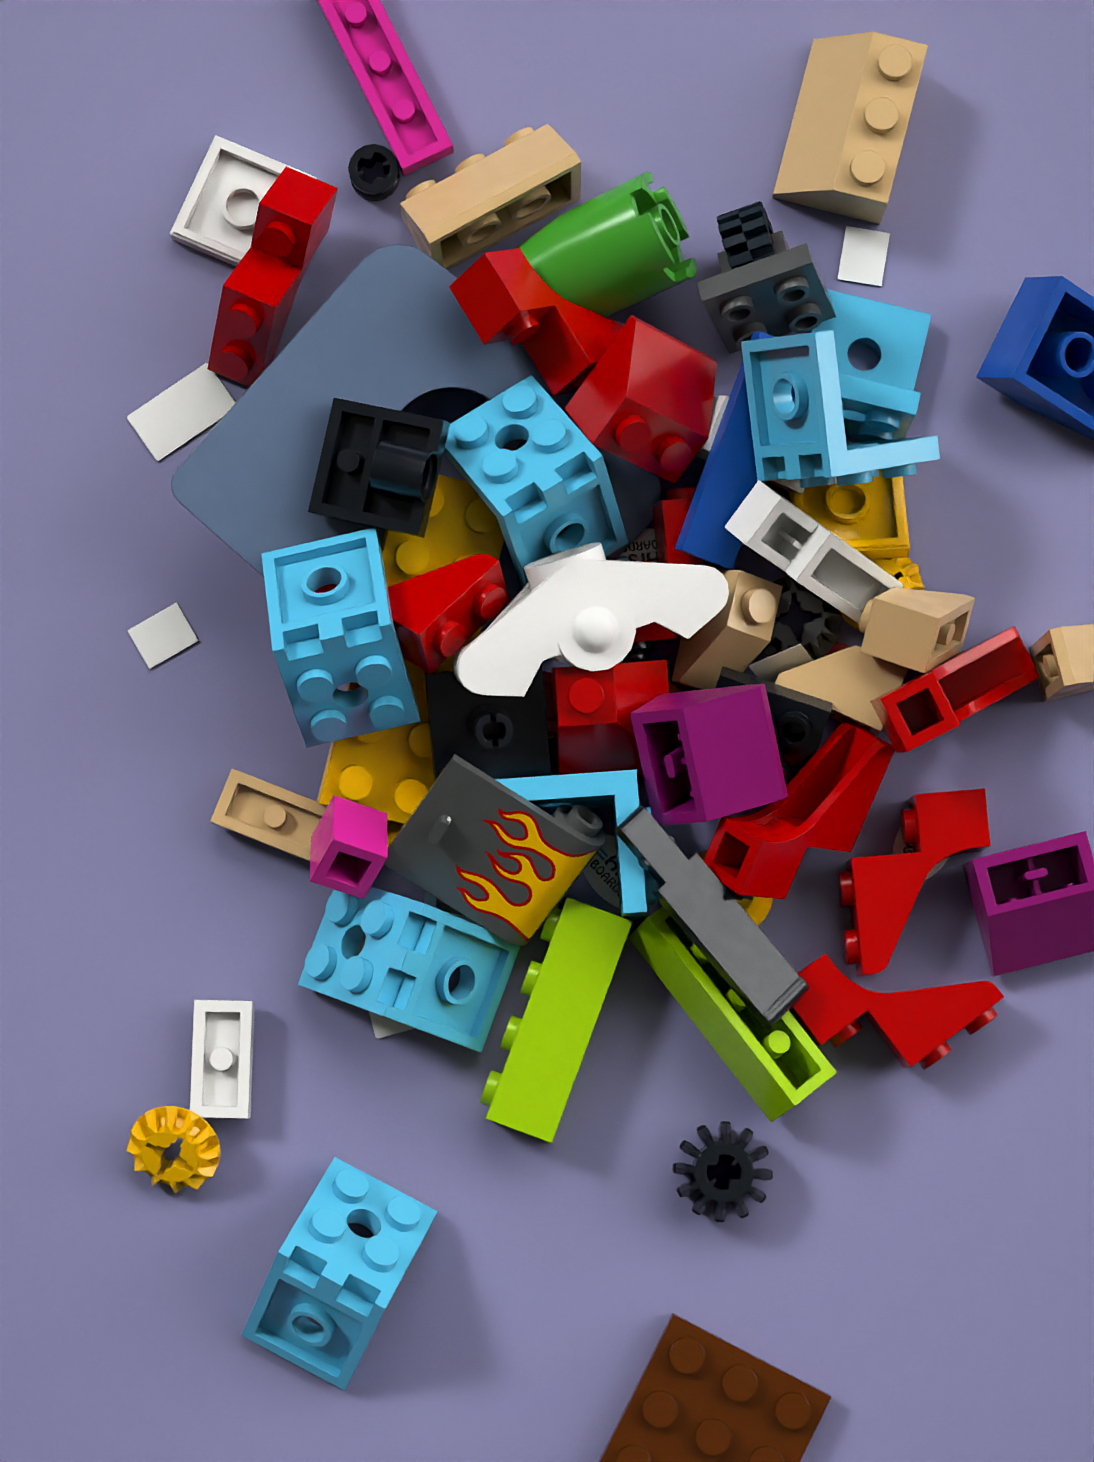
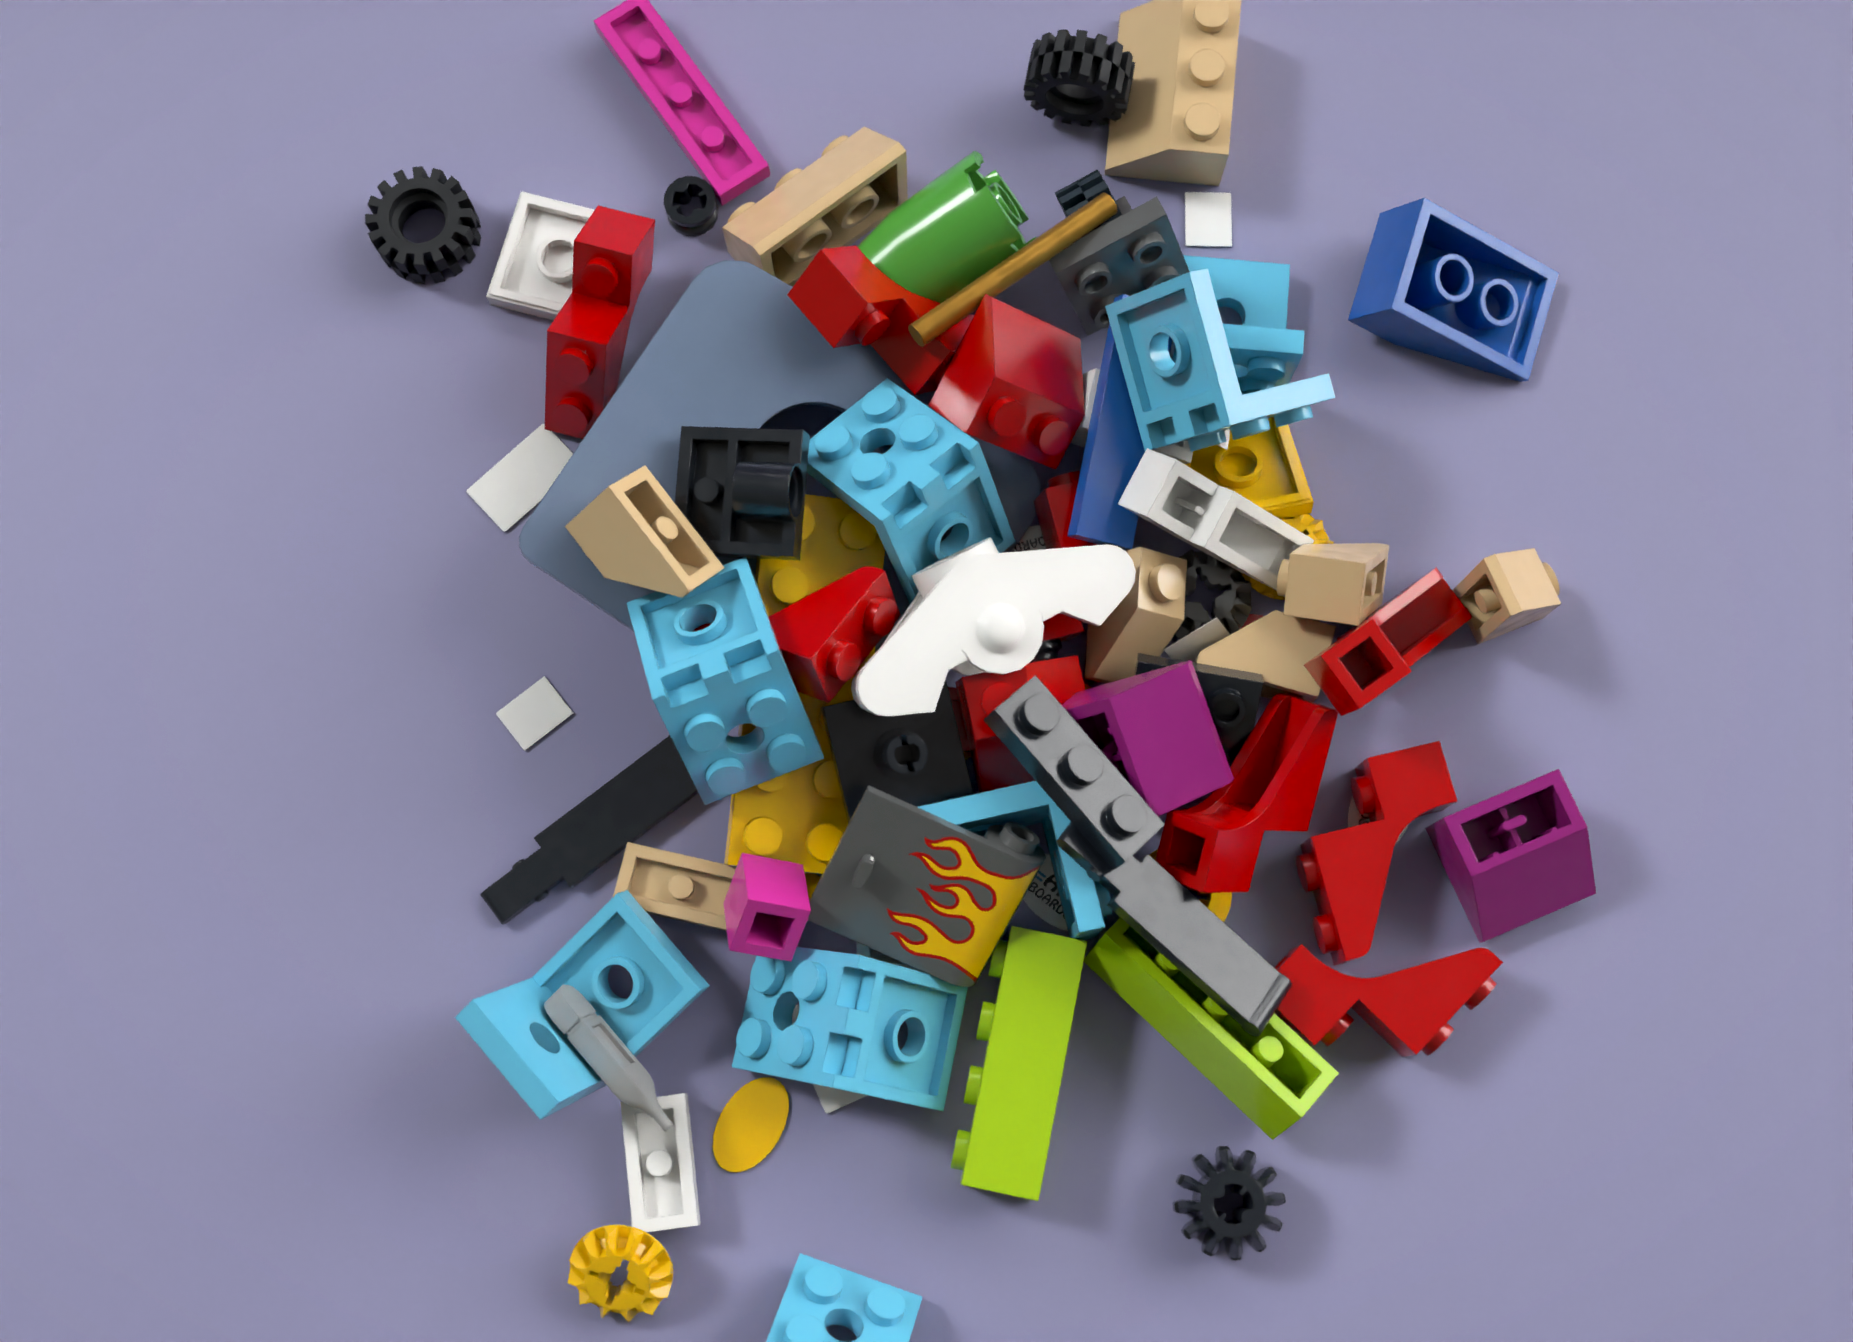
camera: 10 degrees left, 5 degrees down
(111, 124) = (405, 200): none -> black tyre
(154, 928) = (531, 1048): none -> medium azure bracket
(186, 953) = (605, 1052): none -> light grey piece
(204, 752) = (596, 830): none -> black piece
(285, 499) = (643, 538): none -> tan slope
(307, 1037) = (750, 1124): none -> yellow sticker
(641, 770) = (1074, 772): none -> plate
(662, 292) = (1013, 269): none -> pearl gold bar
(760, 104) = (1079, 78): none -> black tyre

